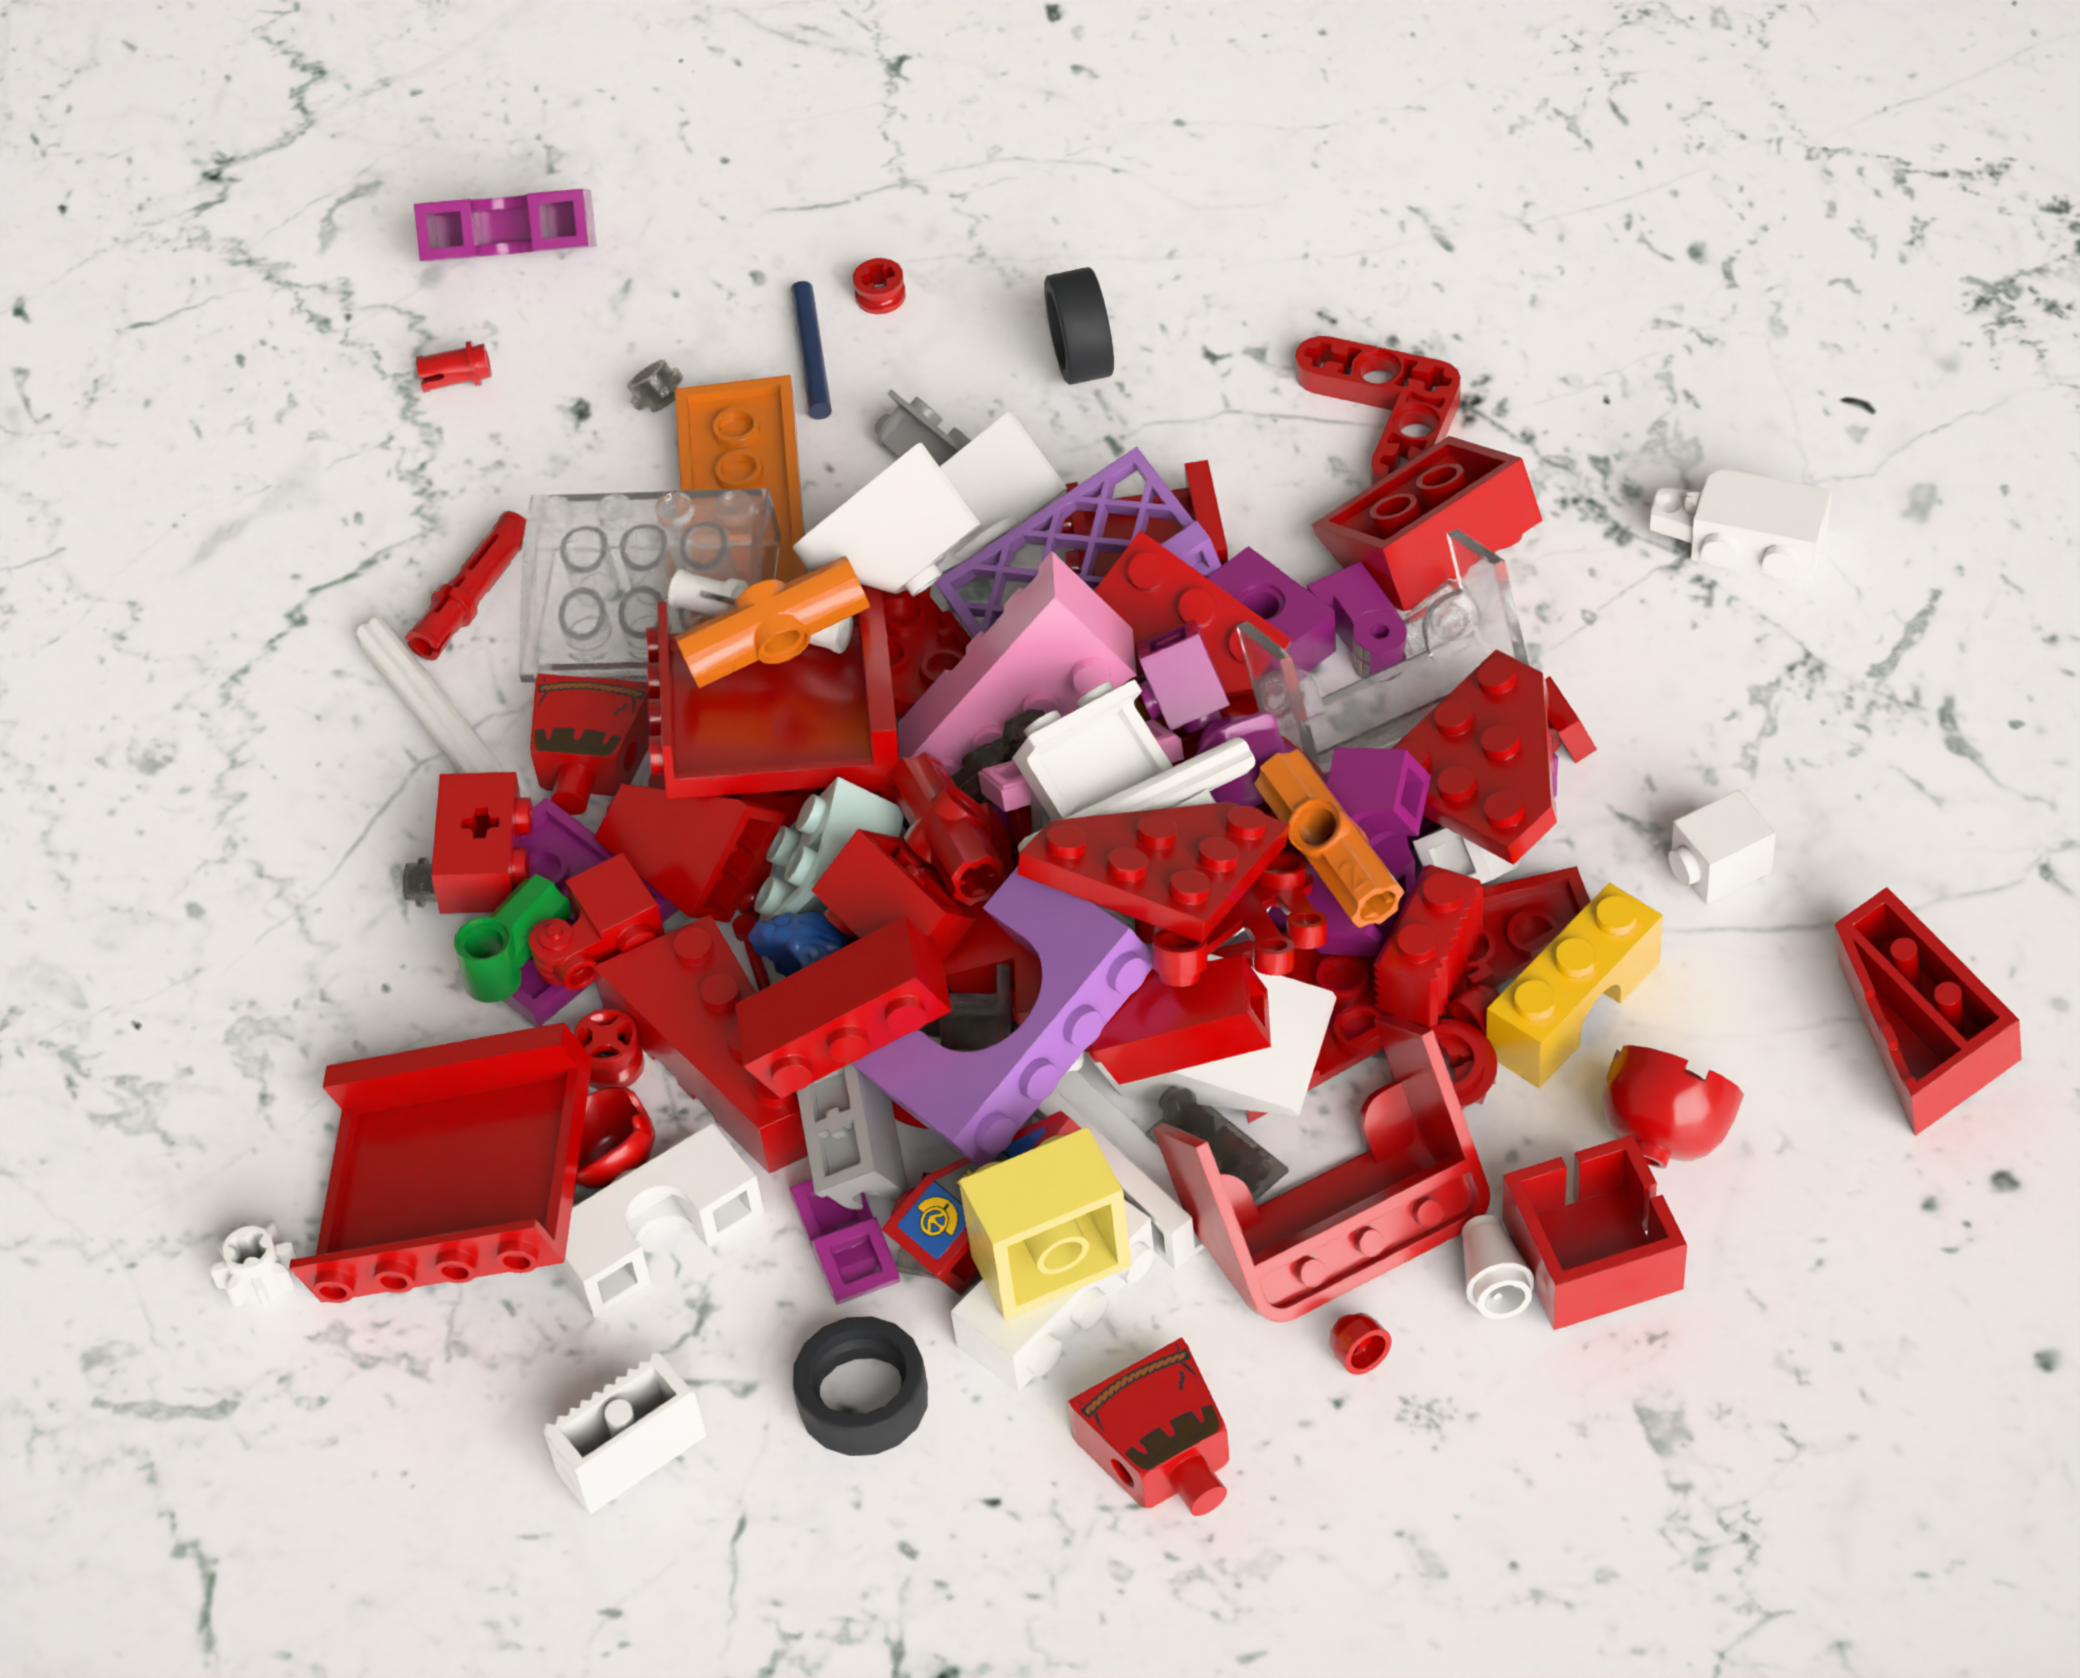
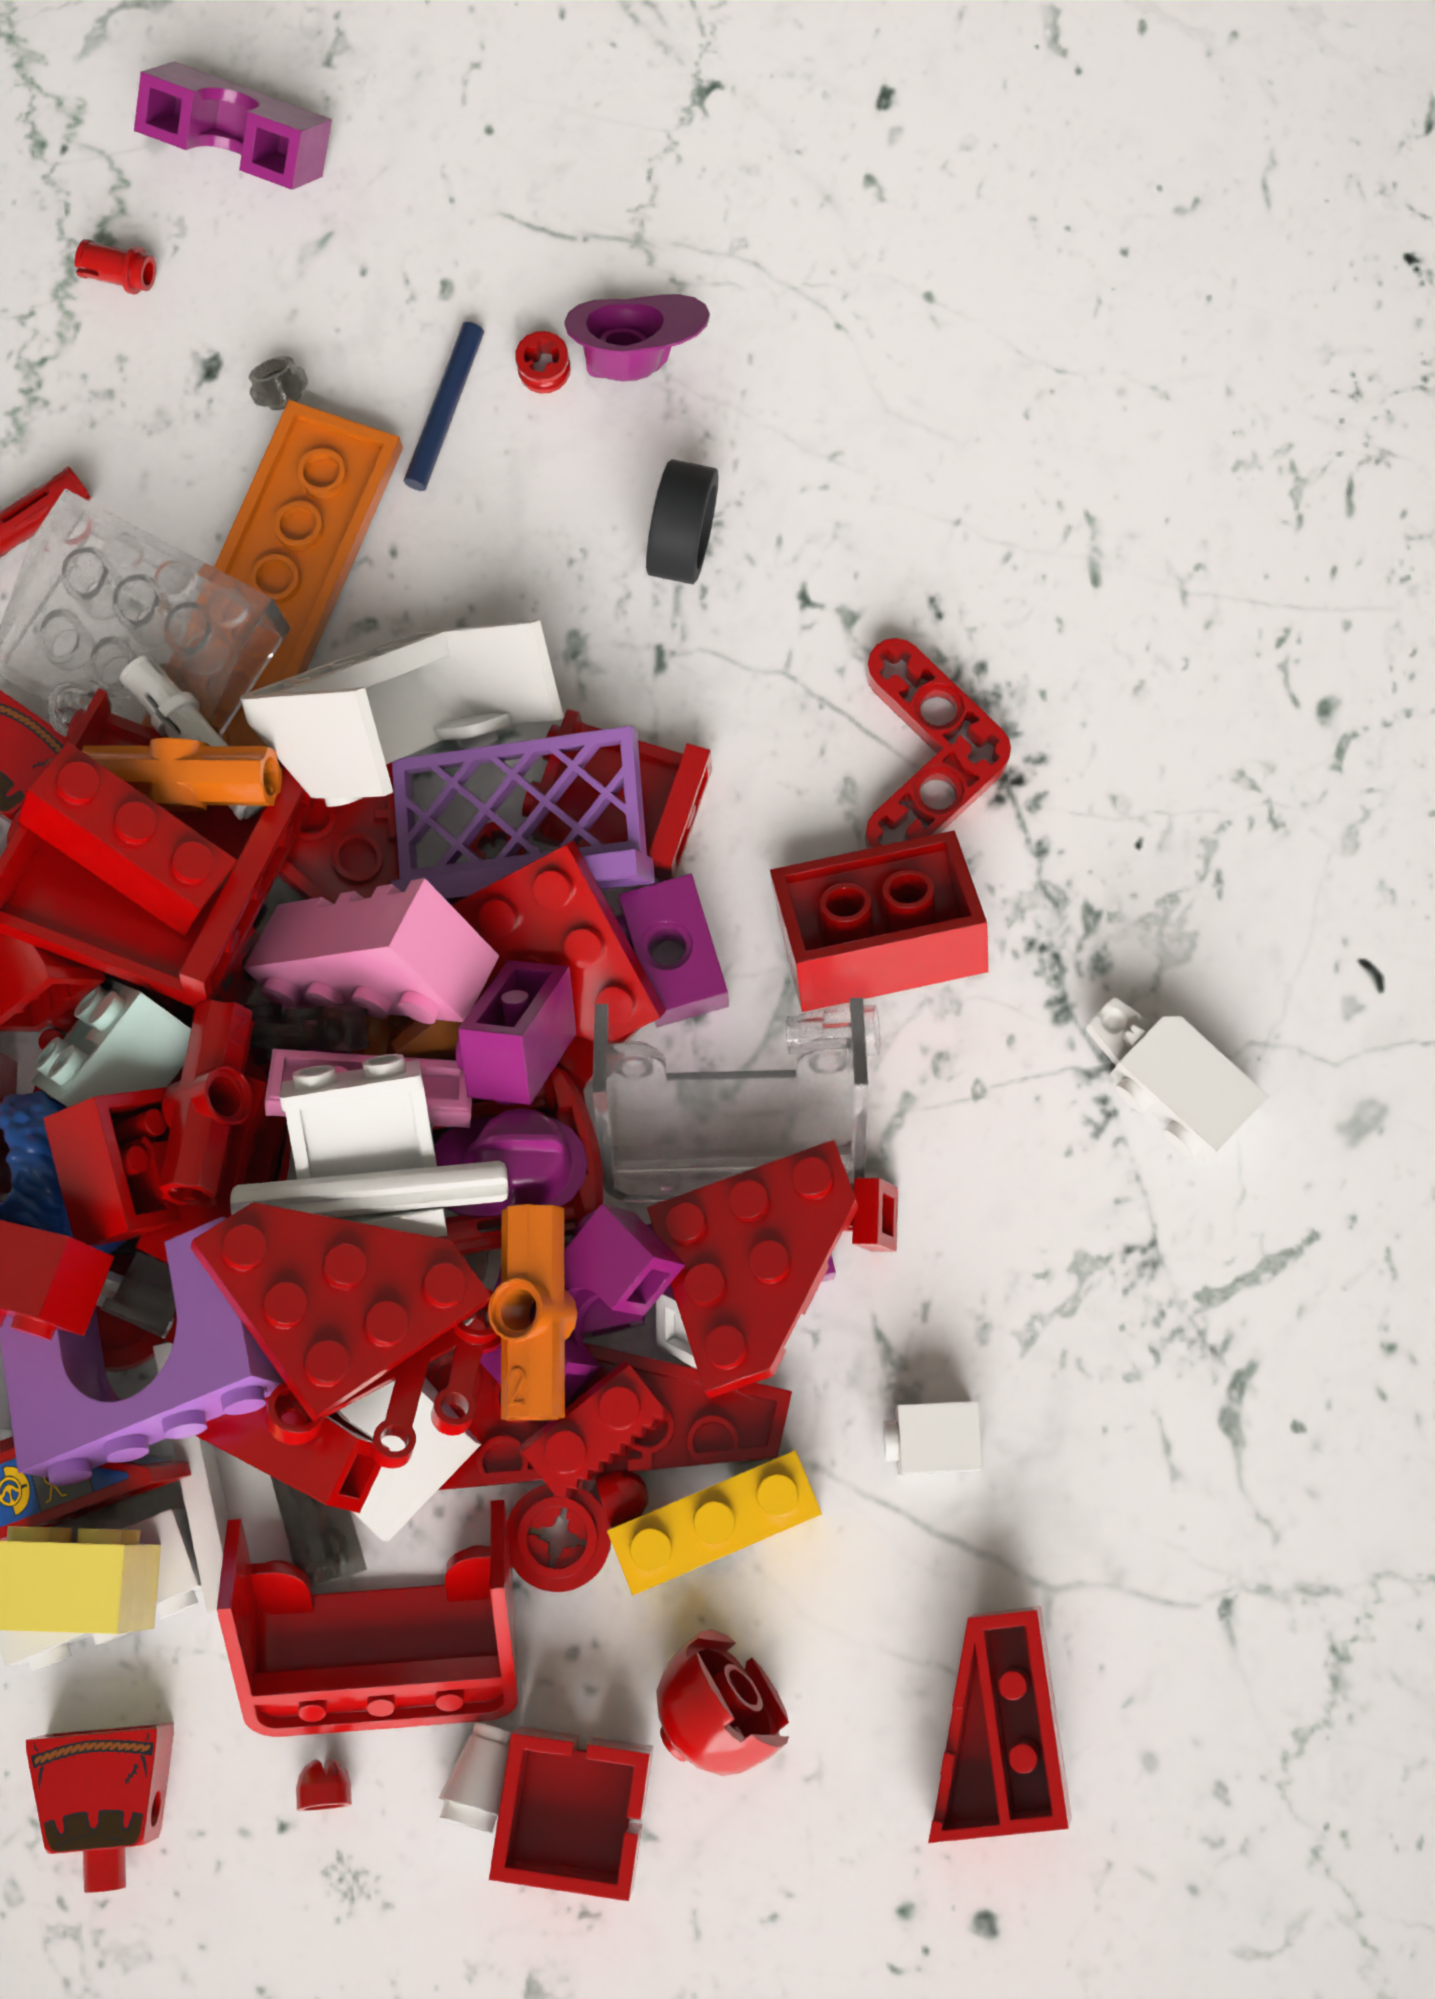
camera: 25 degrees right, 25 degrees up
(612, 646) = (59, 702): none -> clear bush
(763, 667) = (125, 838): none -> red brick
(917, 424) = (482, 556): light grey hinge -> none
(952, 233) = (634, 335): none -> magenta piece
(1363, 618) = (762, 1025): magenta leg -> none

